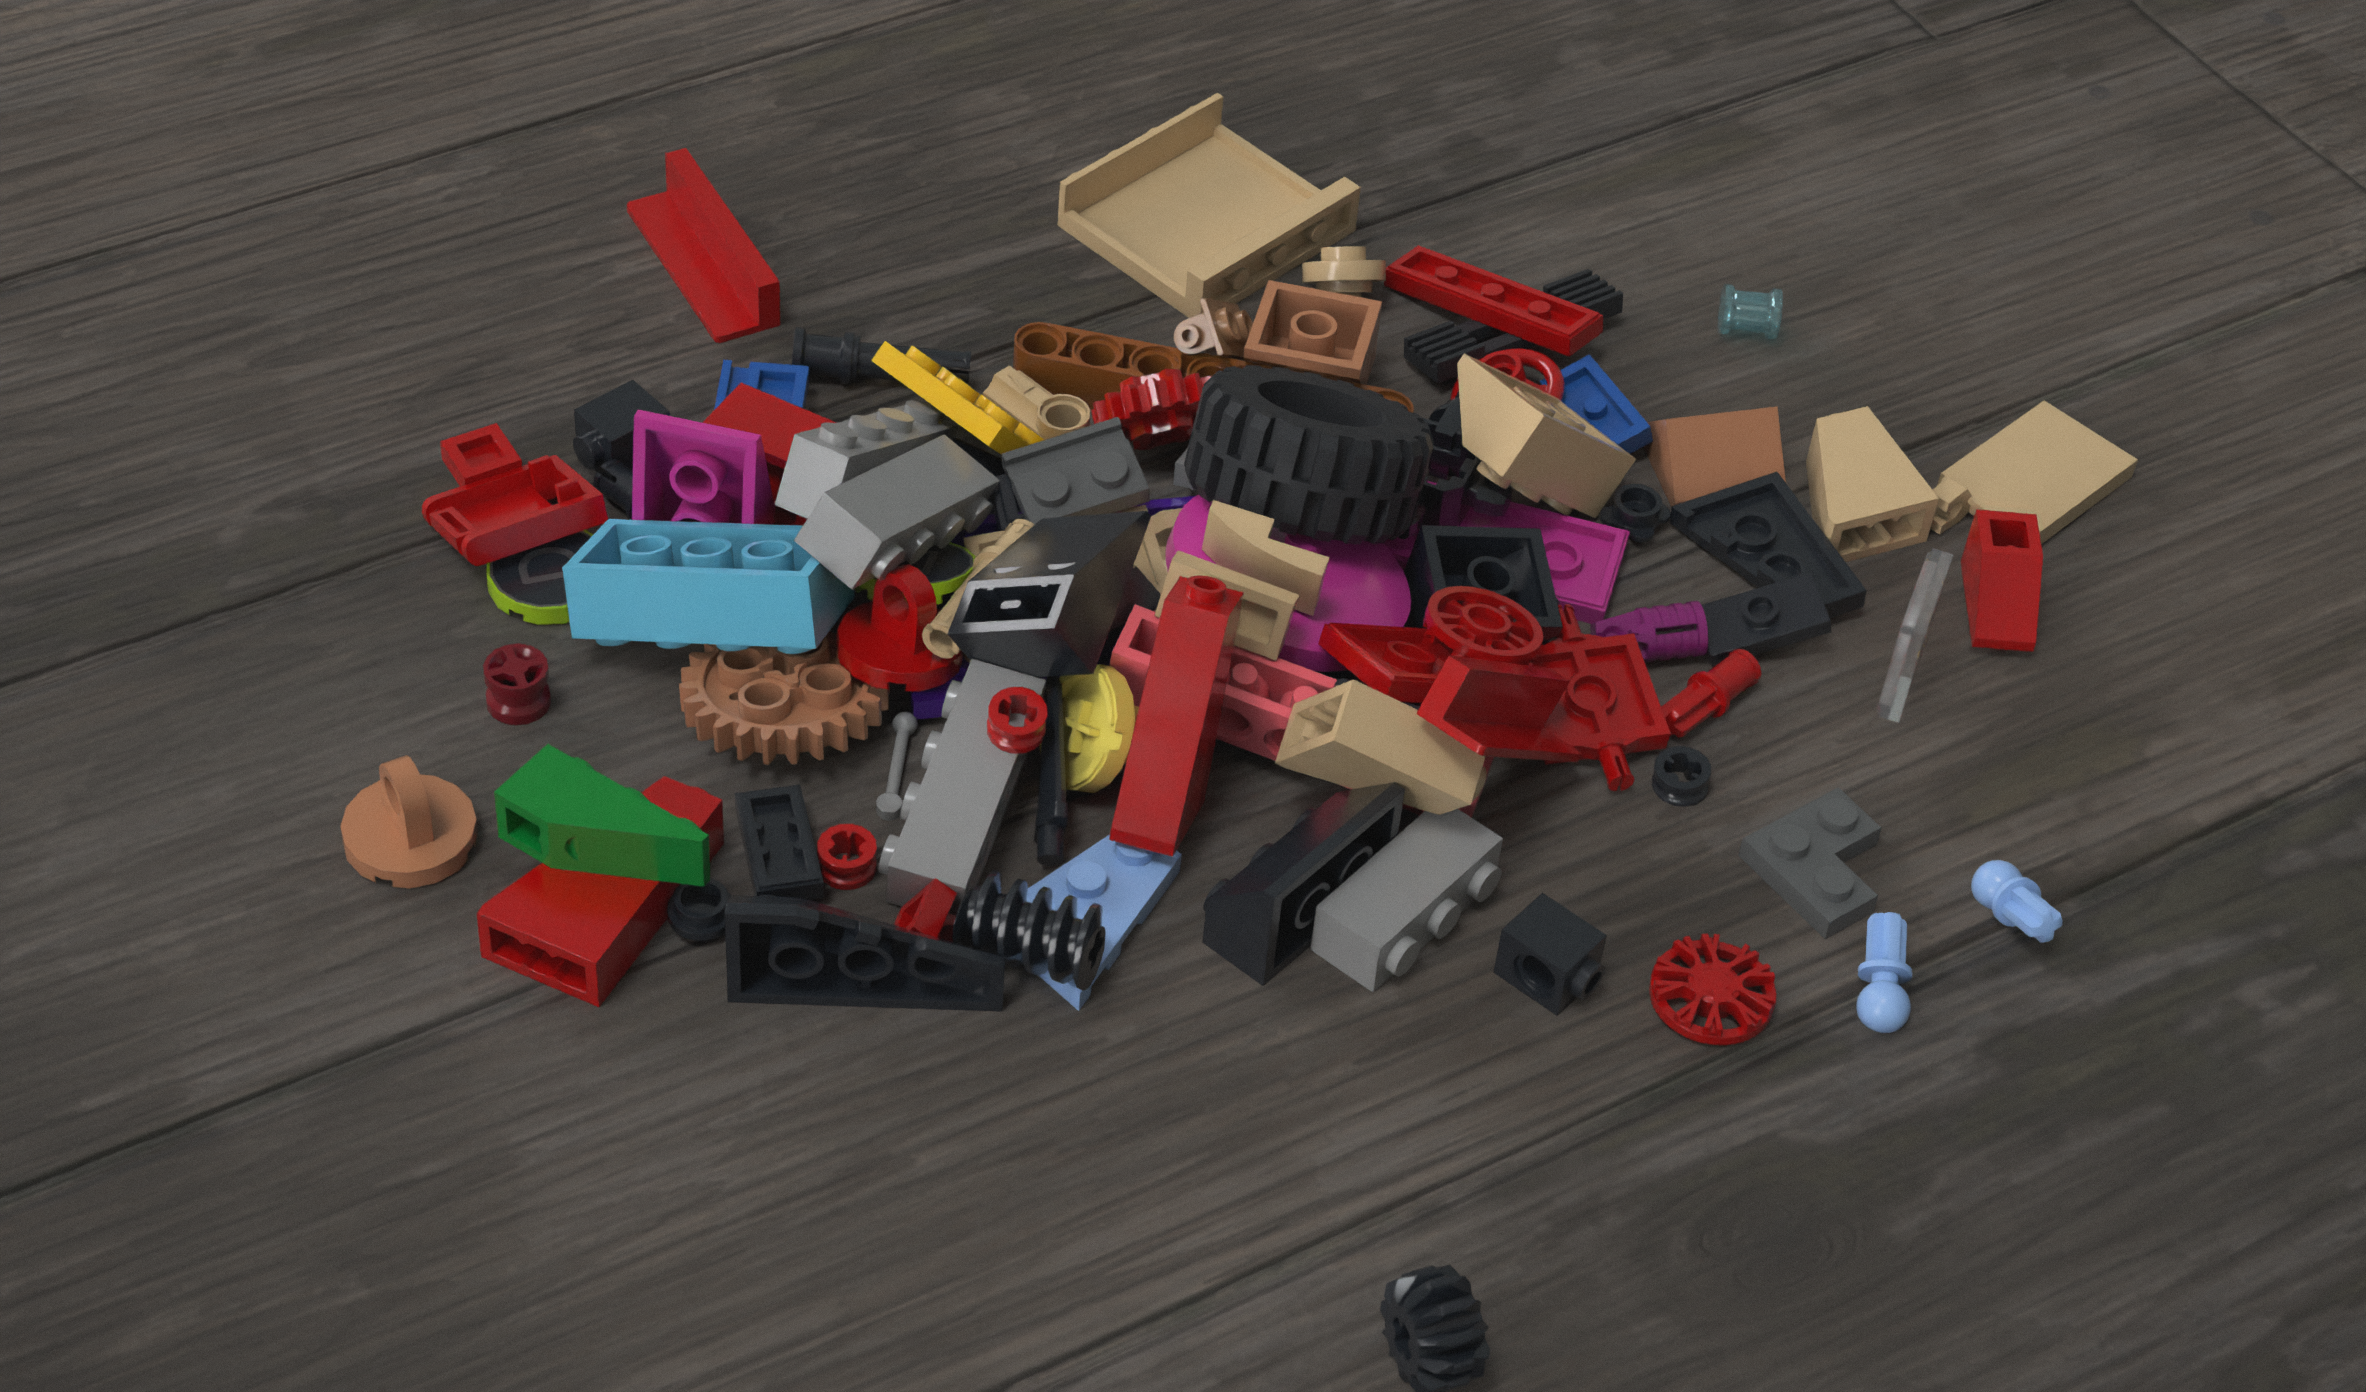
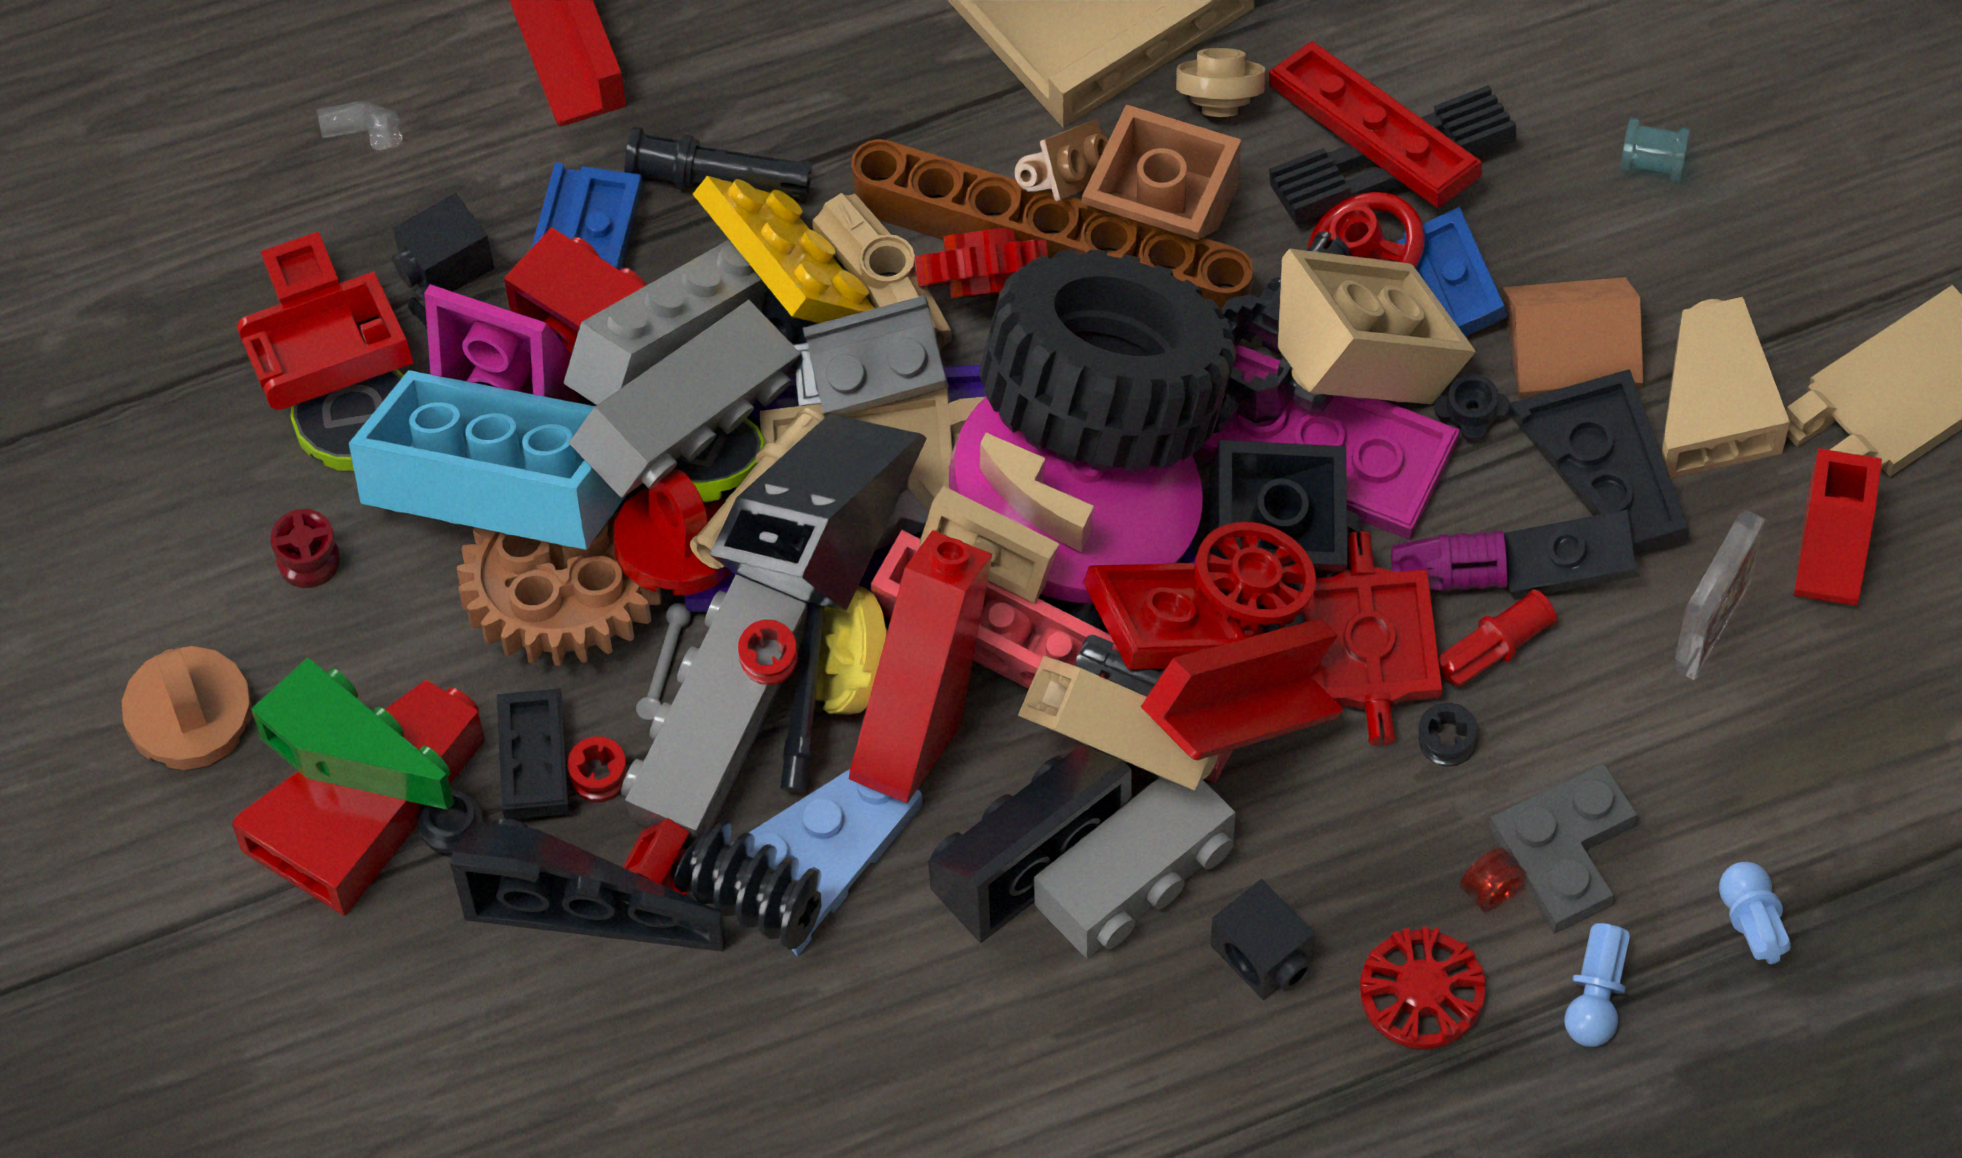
camera: 15 degrees right, 15 degrees up
(522, 339) = (360, 117): none -> clear arm
(1759, 889) = (1493, 879): none -> clear red bush

